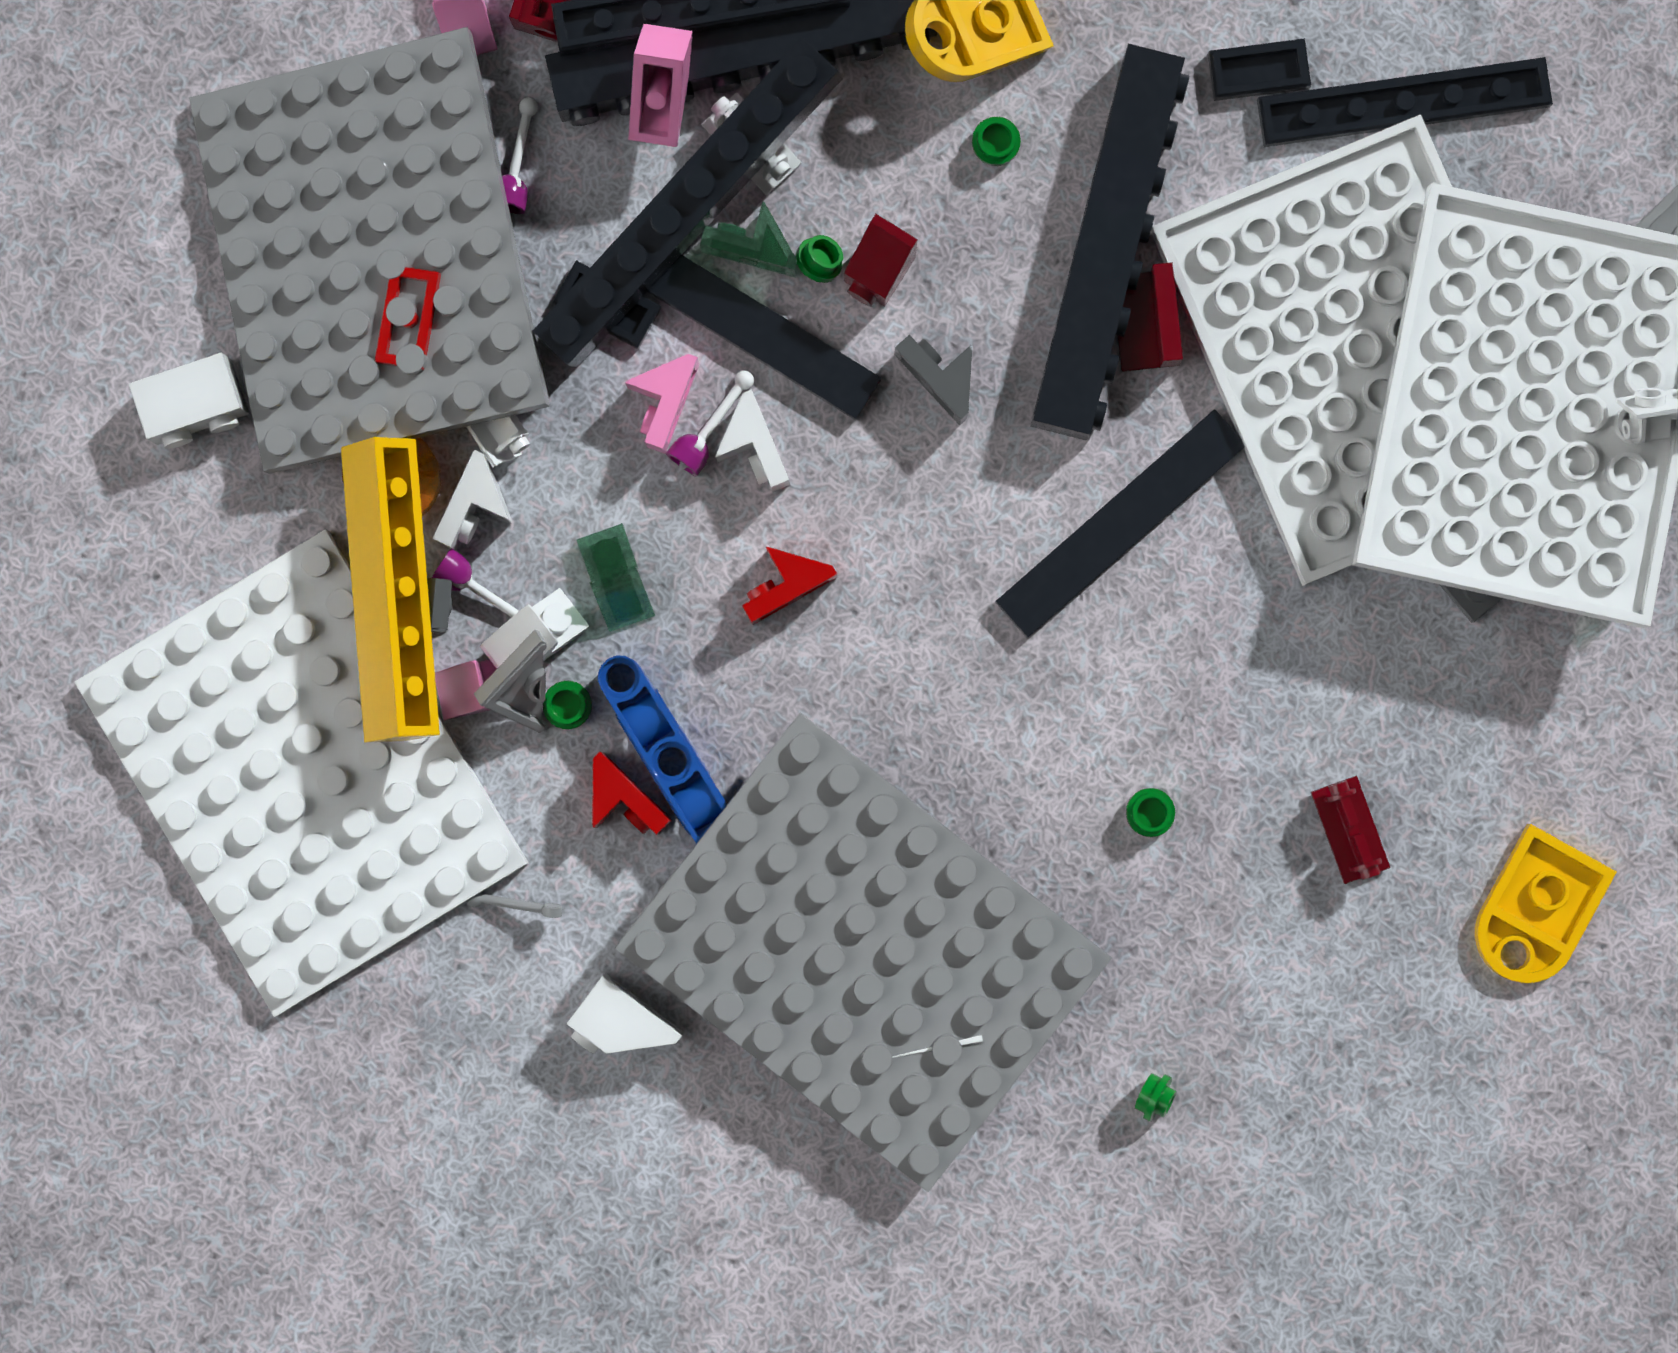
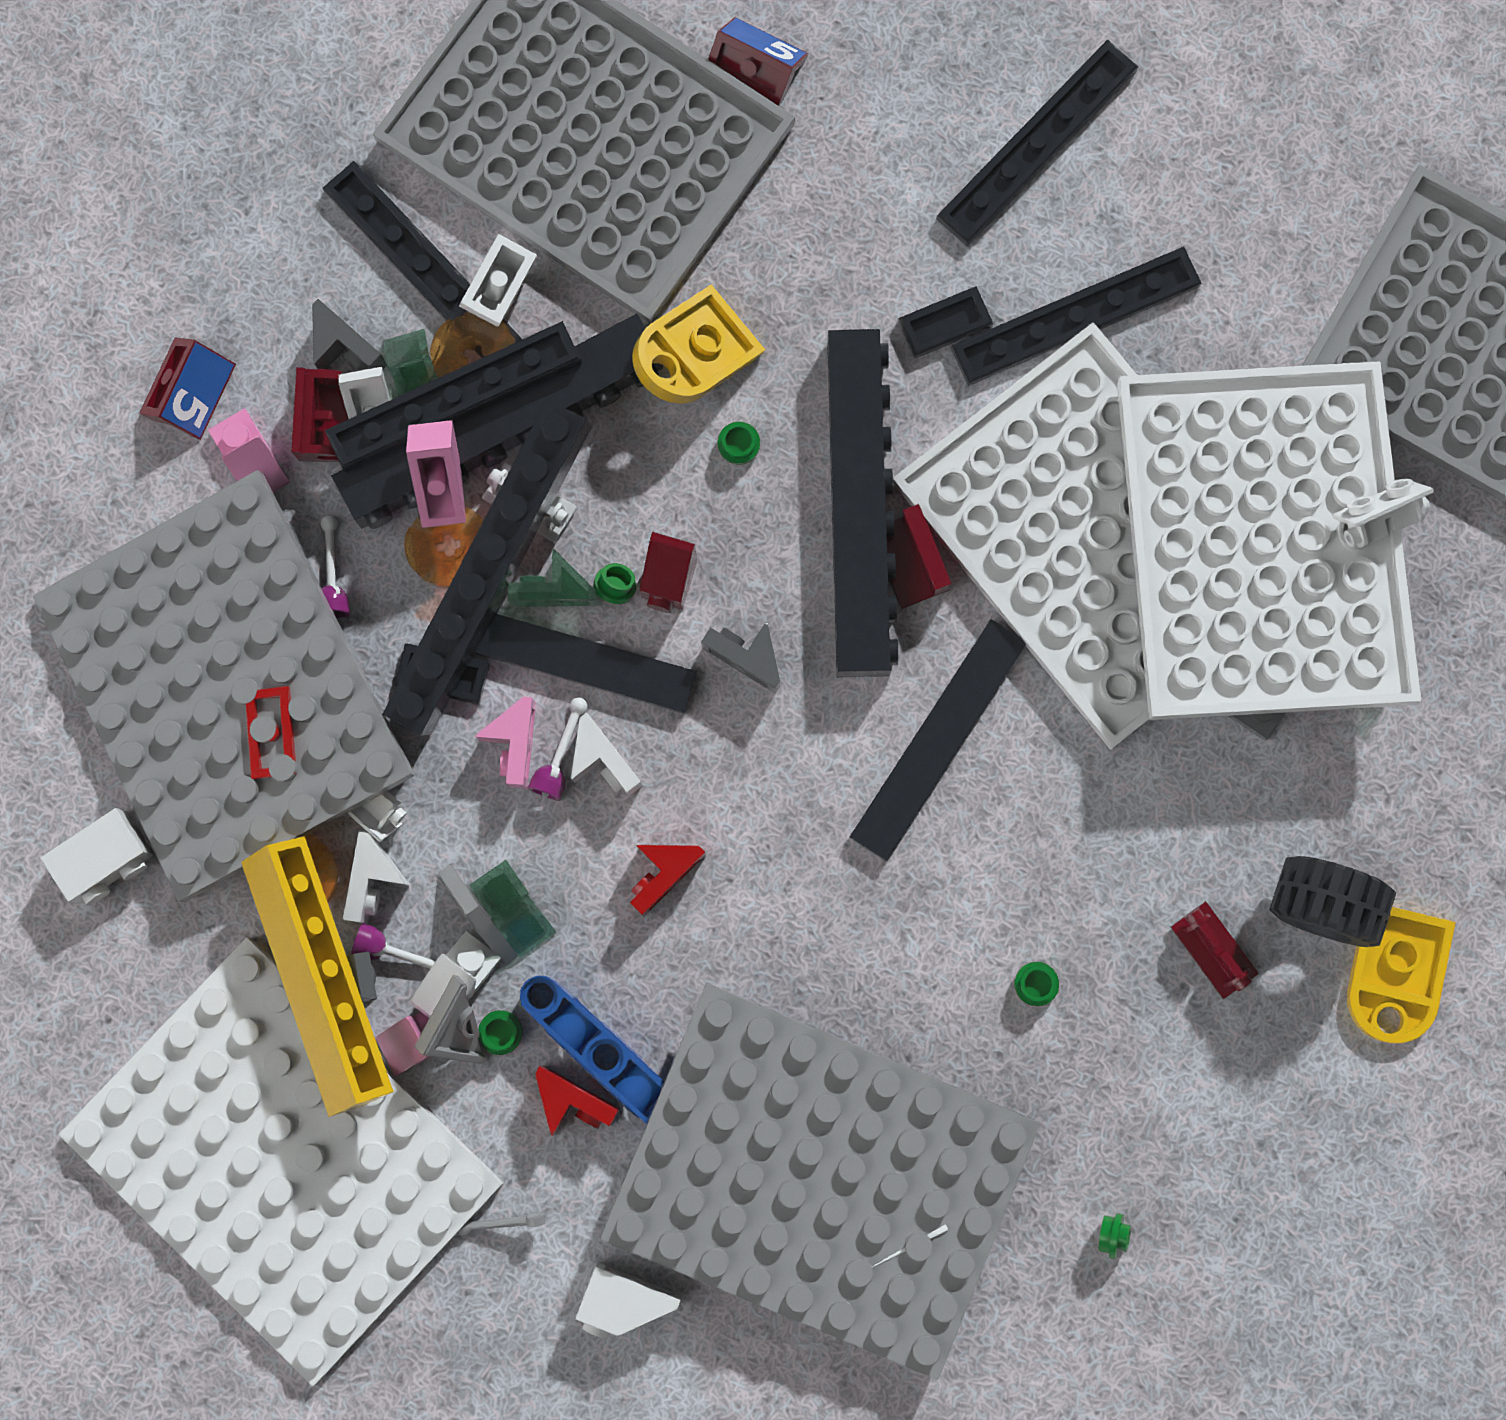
camera: 15 degrees left, 5 degrees down
(575, 573) = (476, 914): none -> light grey tile
(621, 170) = (433, 565): none -> clear orange plate
(1491, 812) = (1333, 901): none -> black tyre

